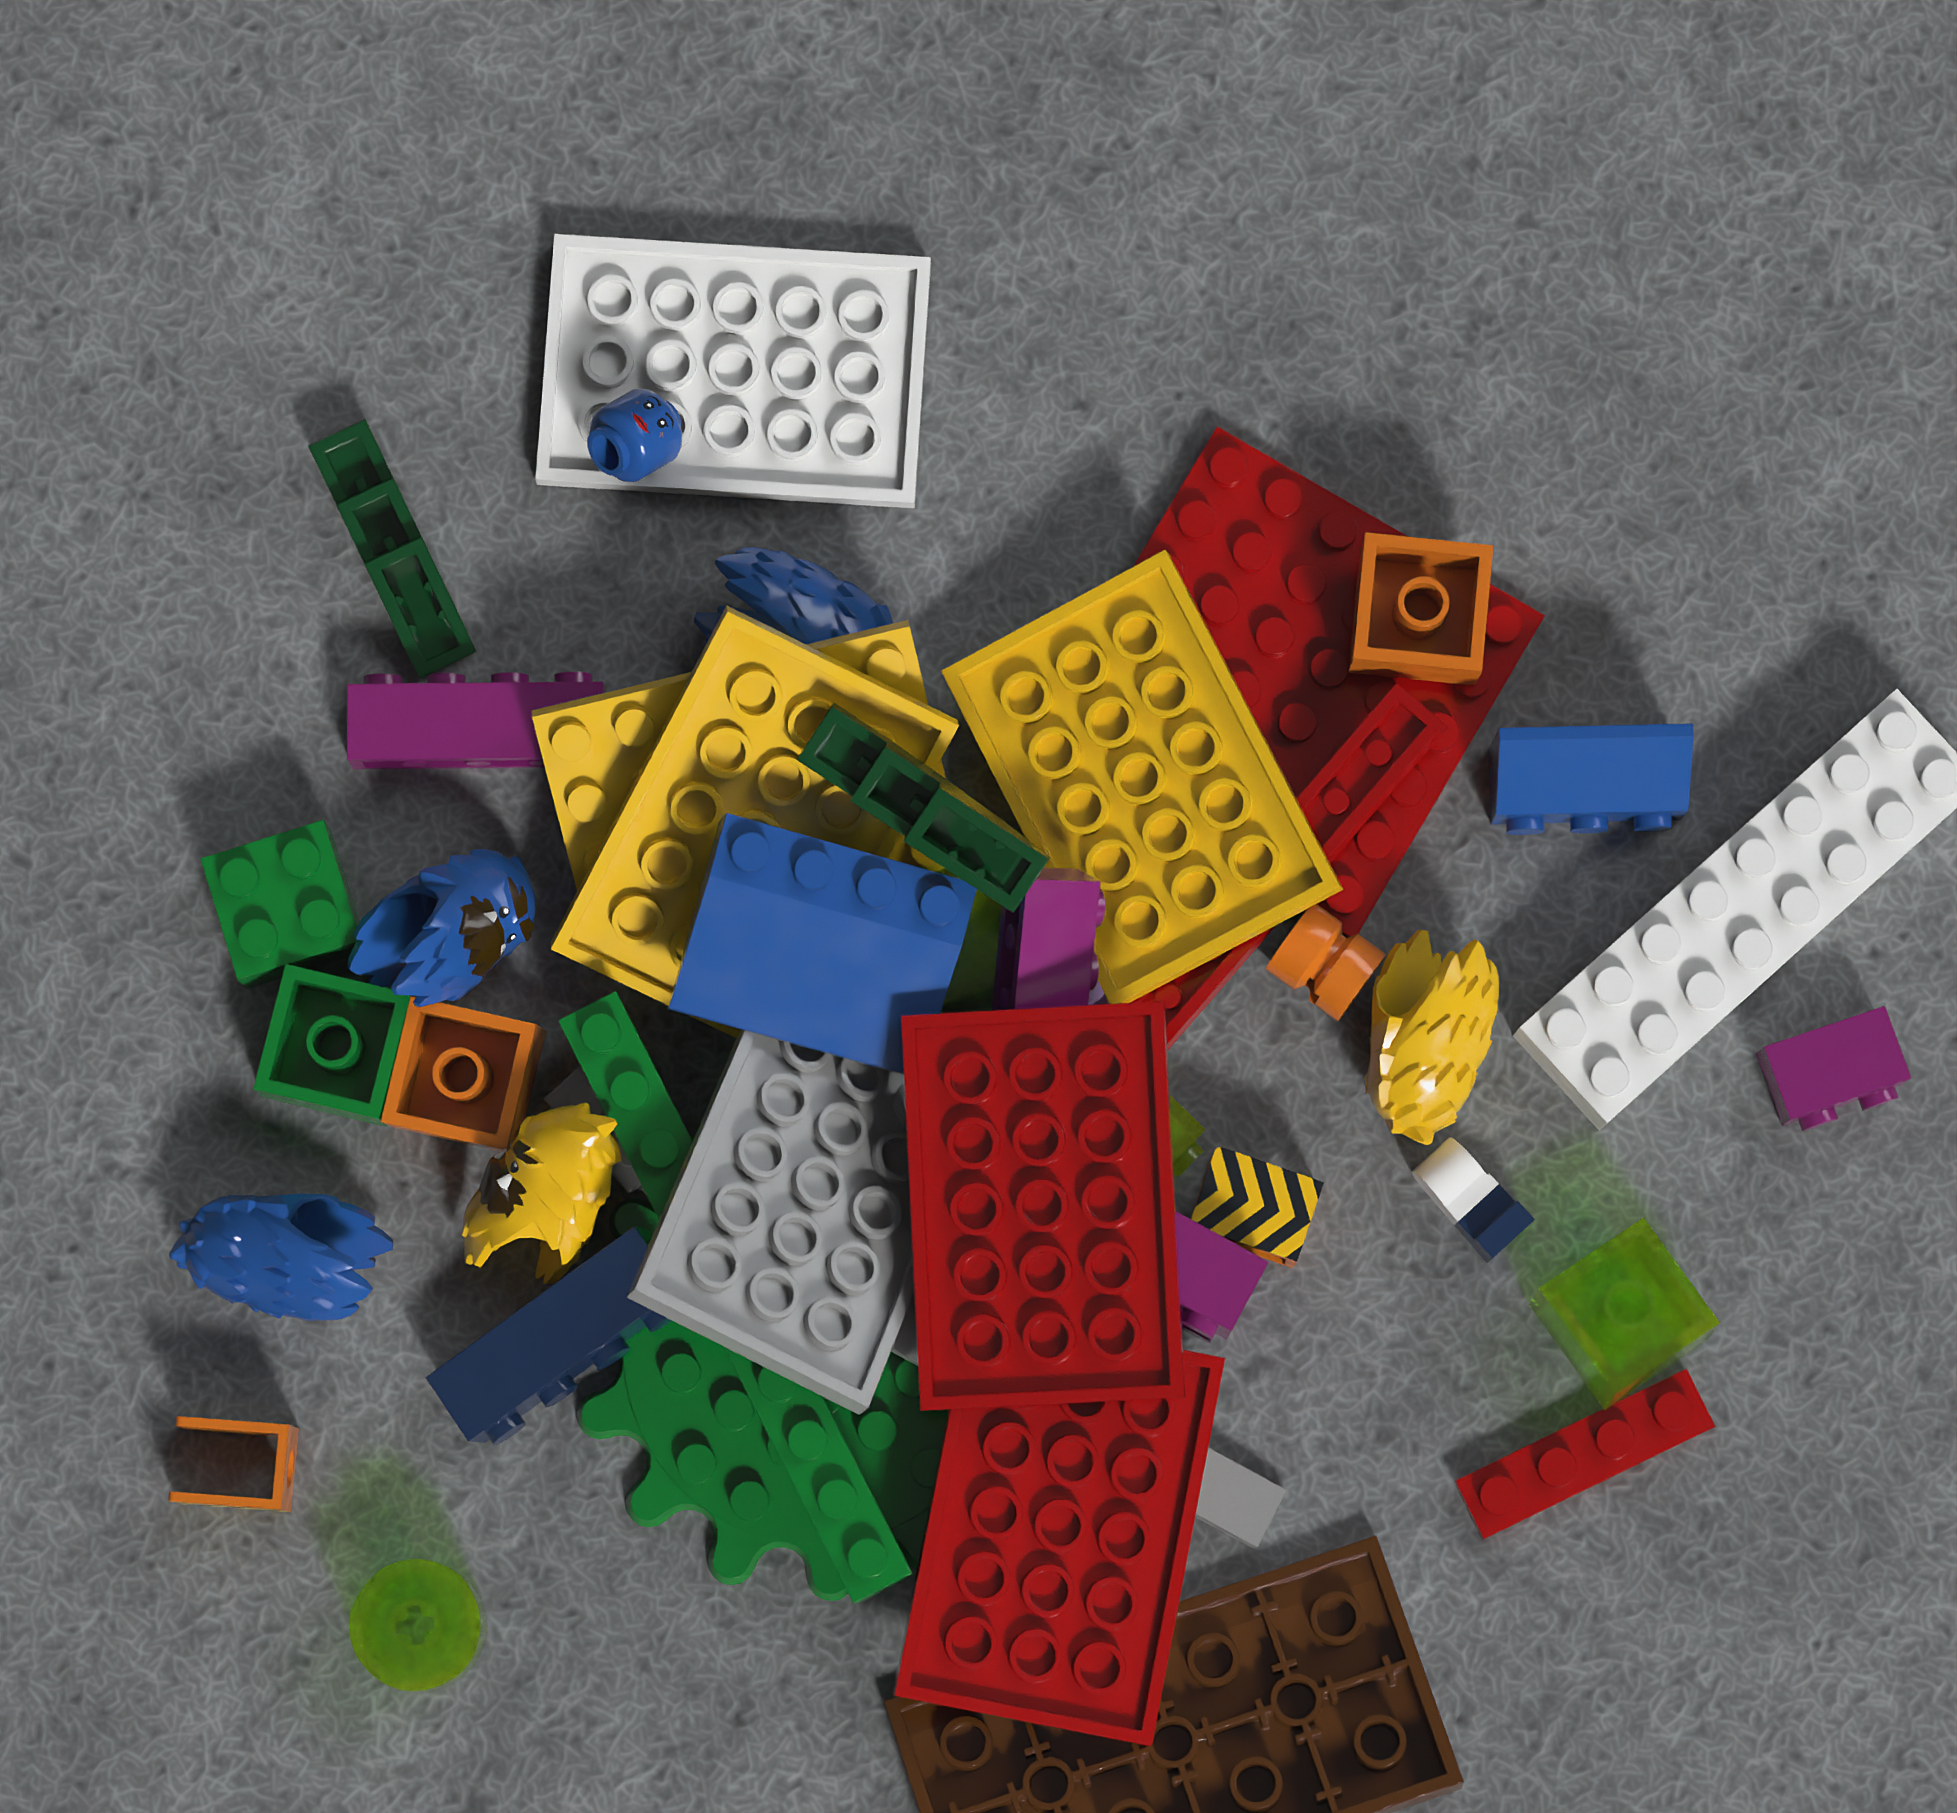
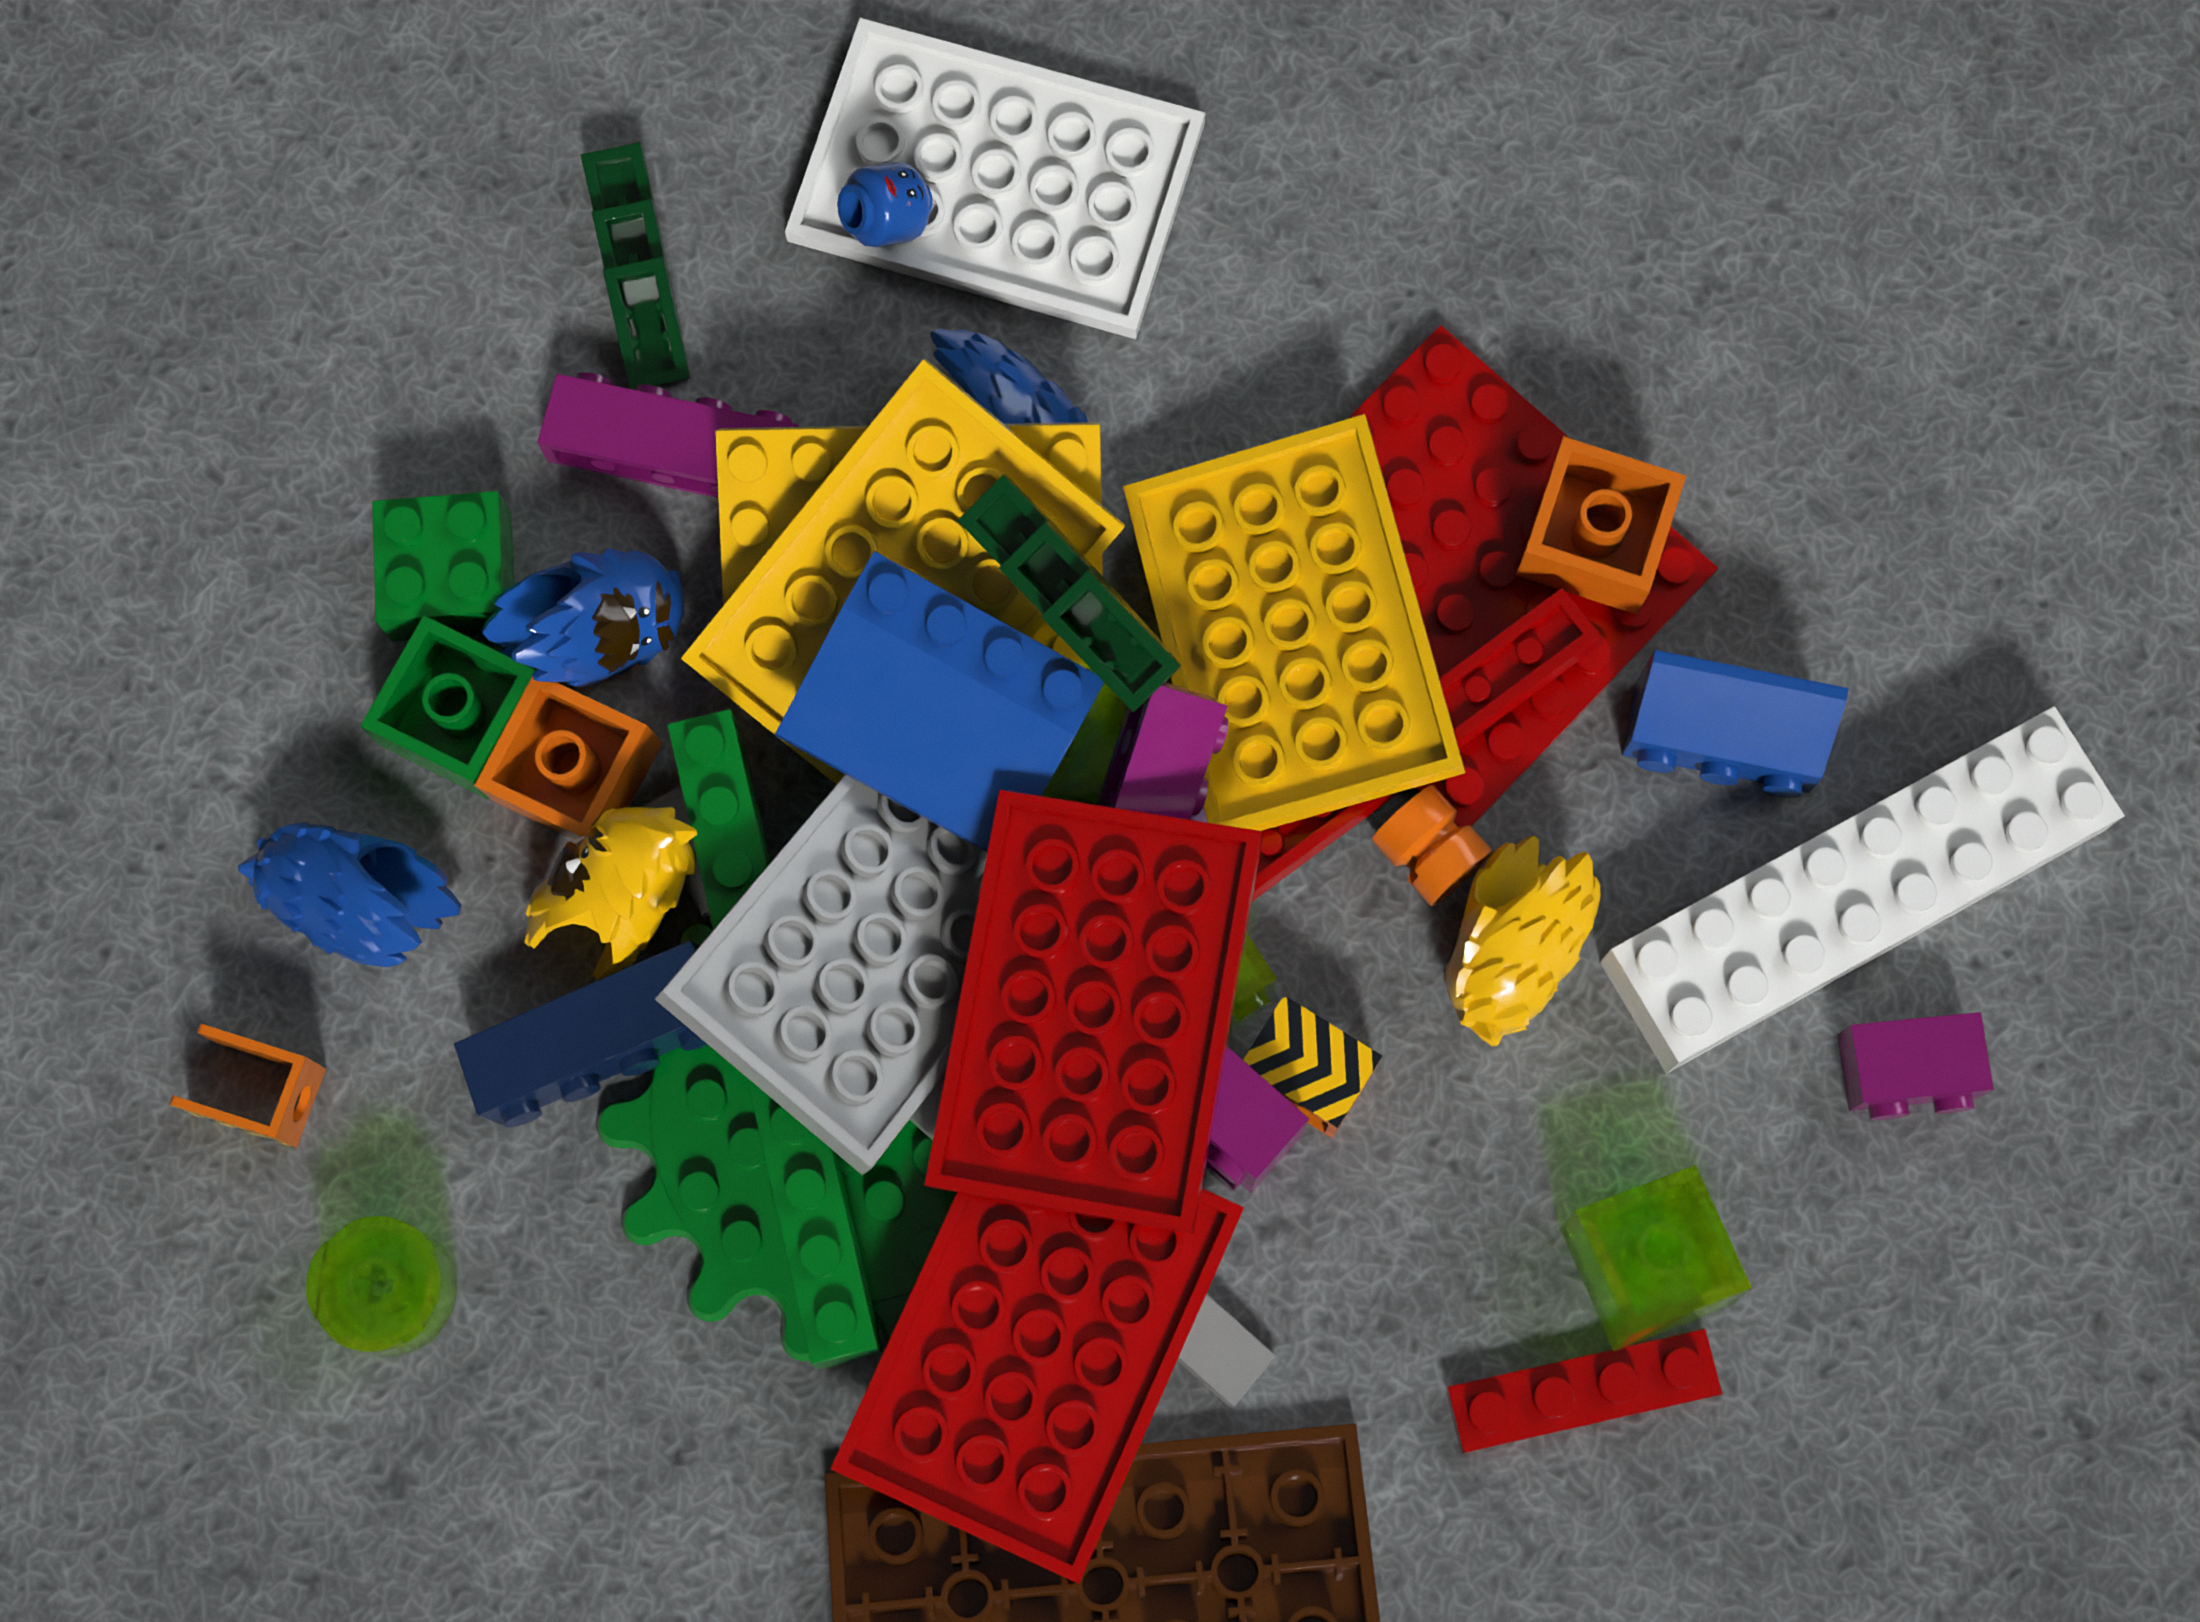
camera: 15 degrees right, 5 degrees down
(1471, 1199) = (1526, 1110): leg -> none

